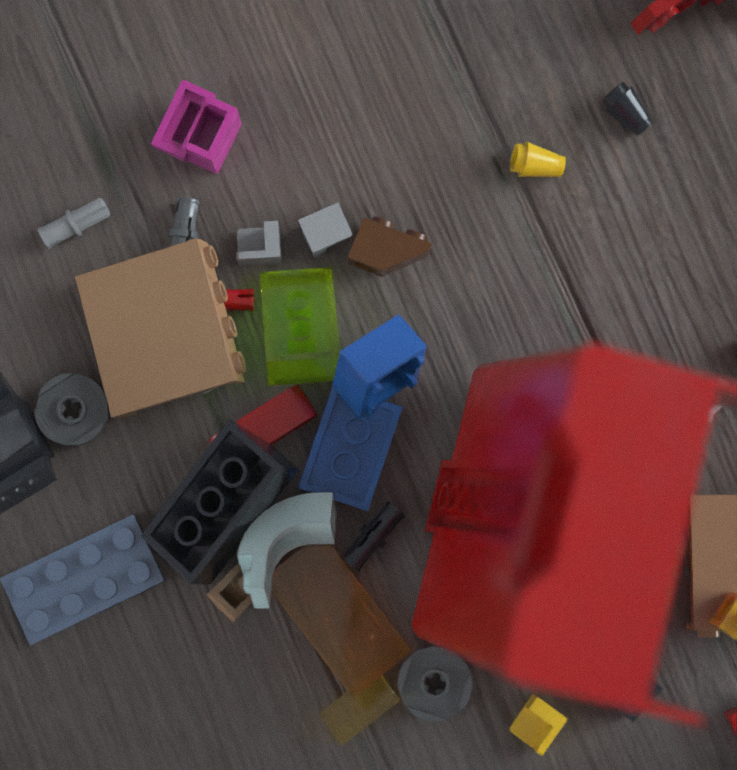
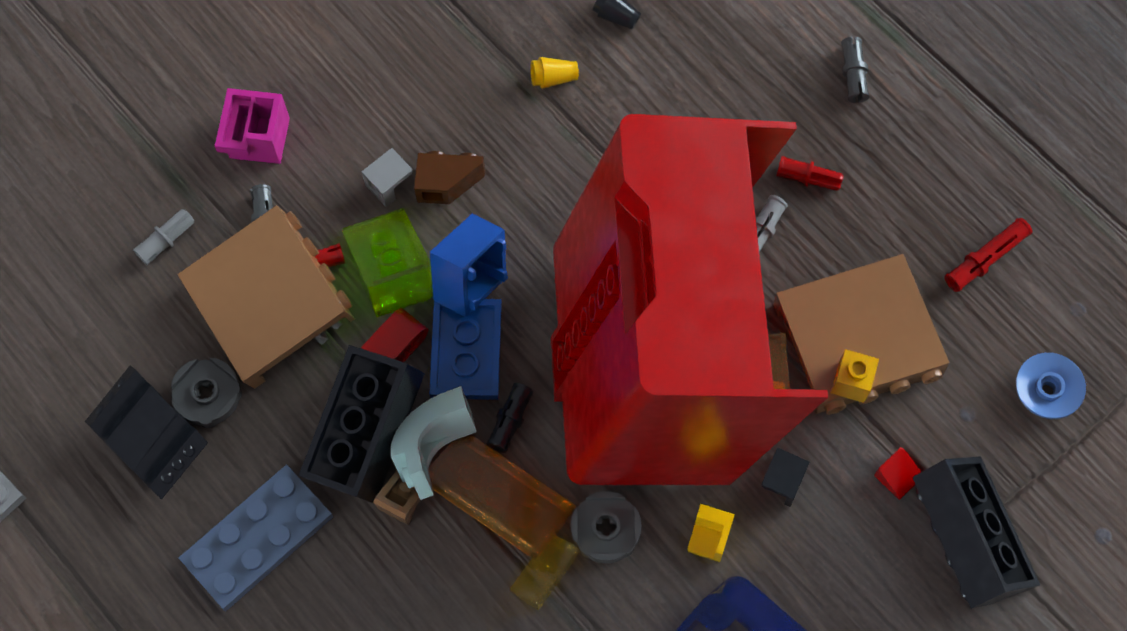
camera: 15 degrees left, 15 degrees down
(259, 245) = (335, 208): light grey panel -> none

